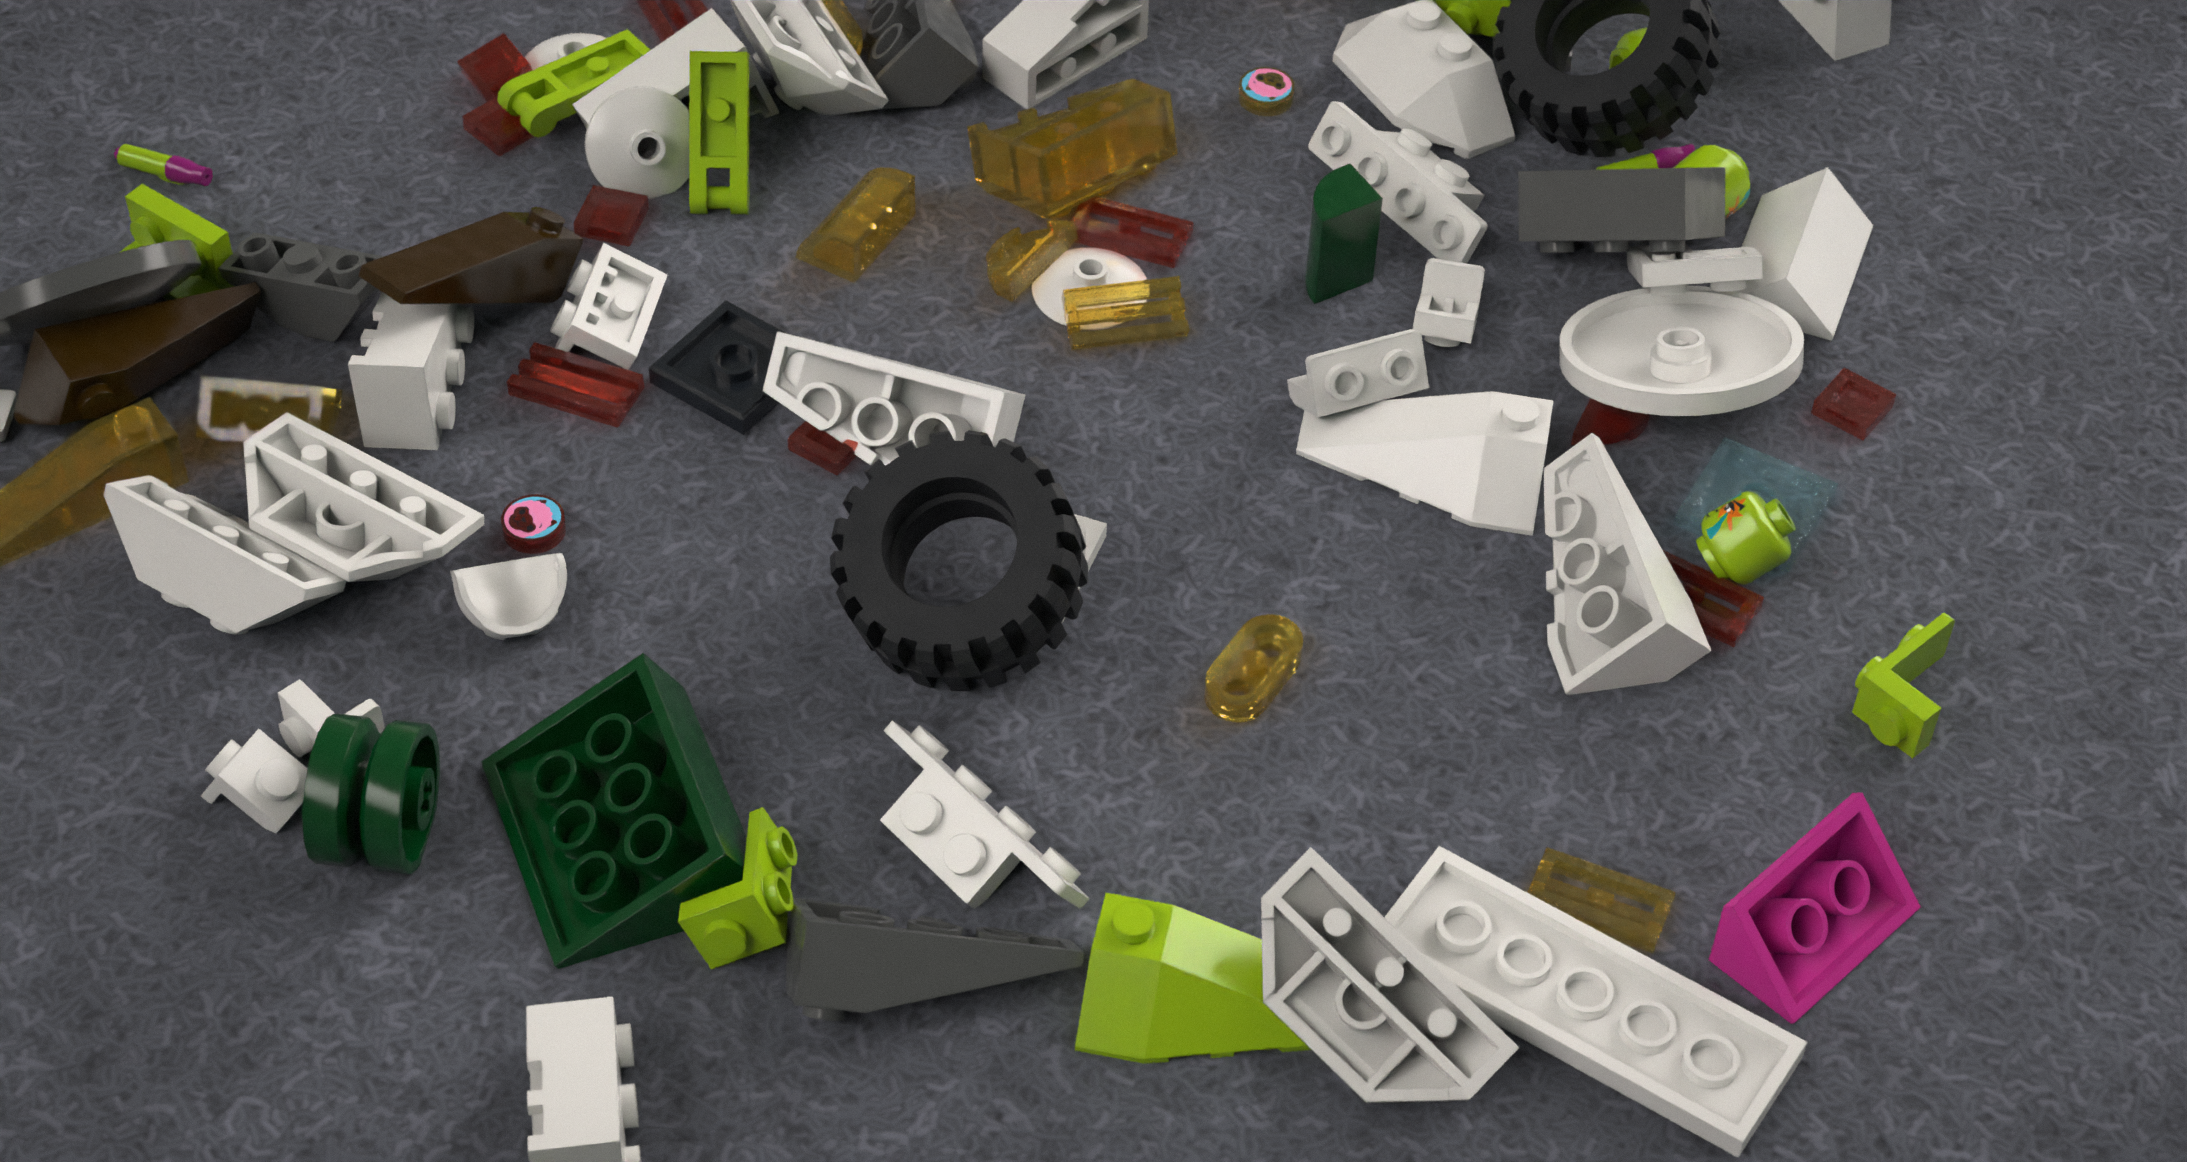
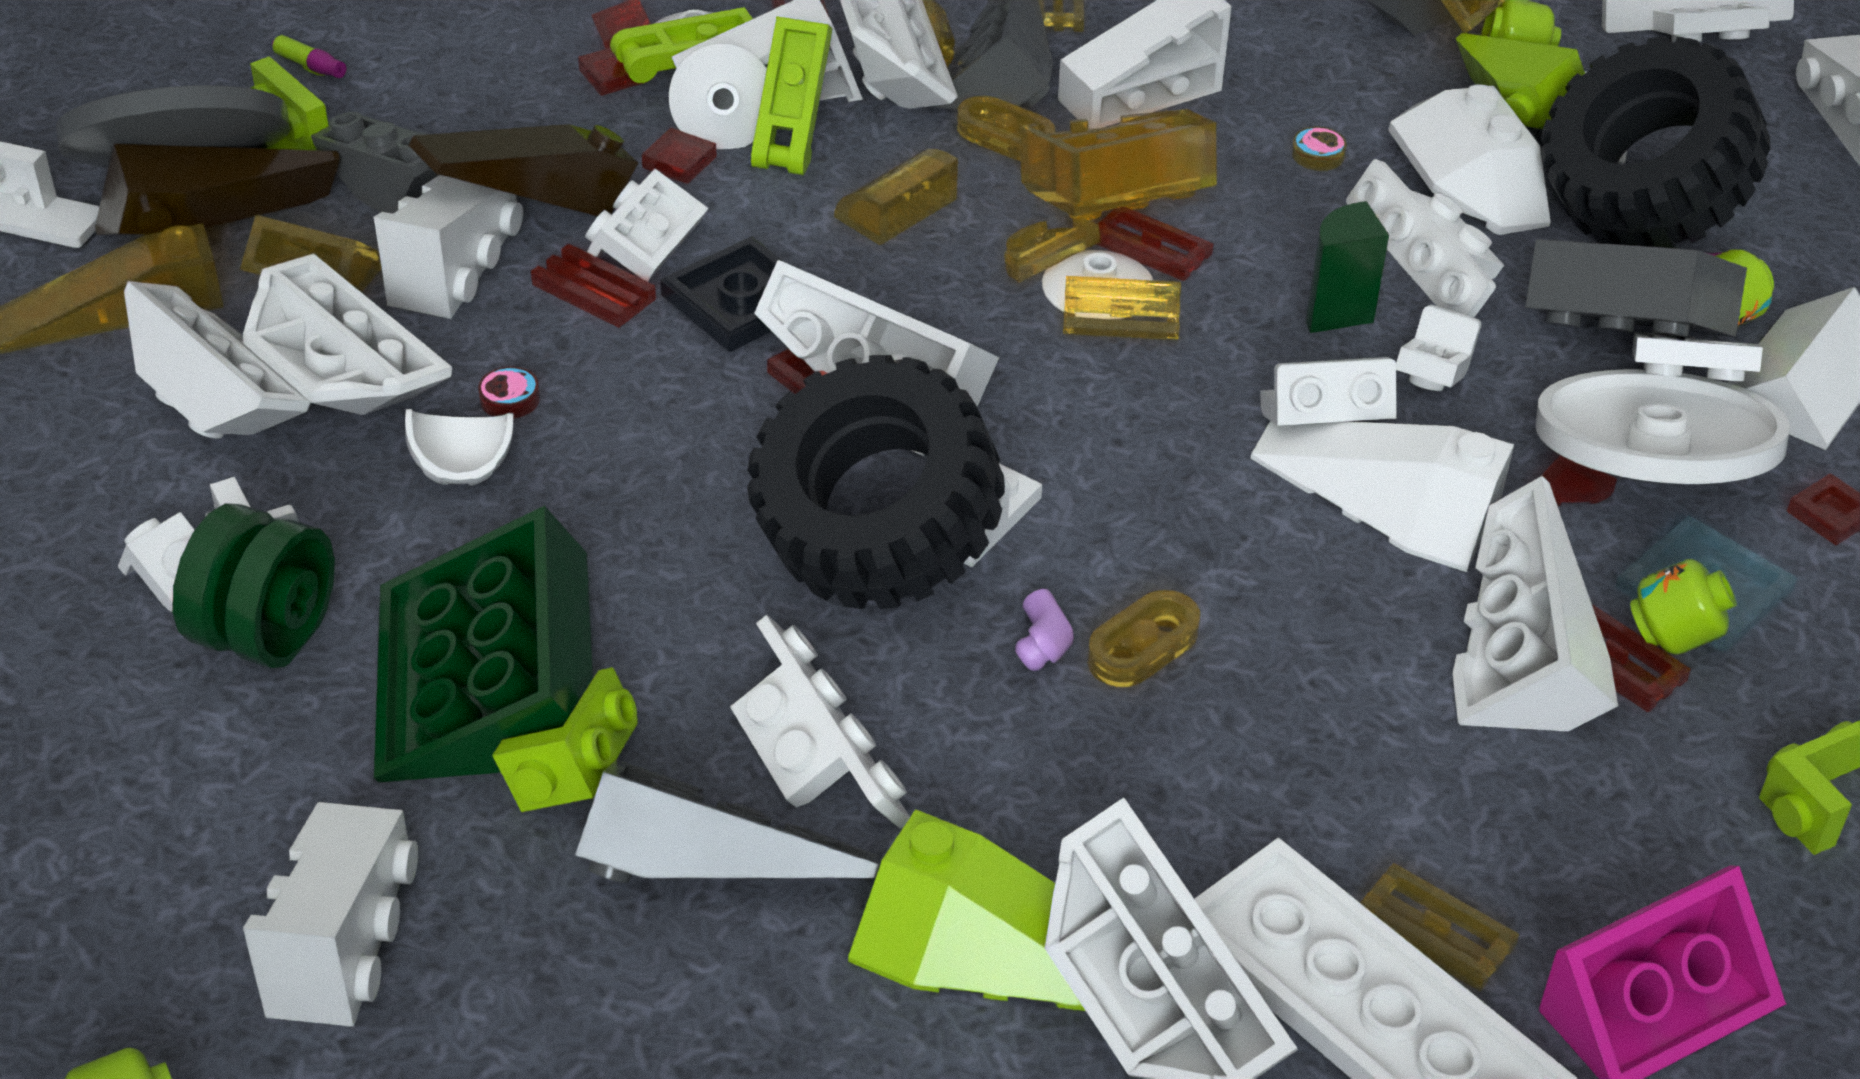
camera: 15 degrees right, 5 degrees down
(937, 122) = (996, 124): none -> clear yellow plate
(1162, 679) = (1049, 634): none -> lavender arm

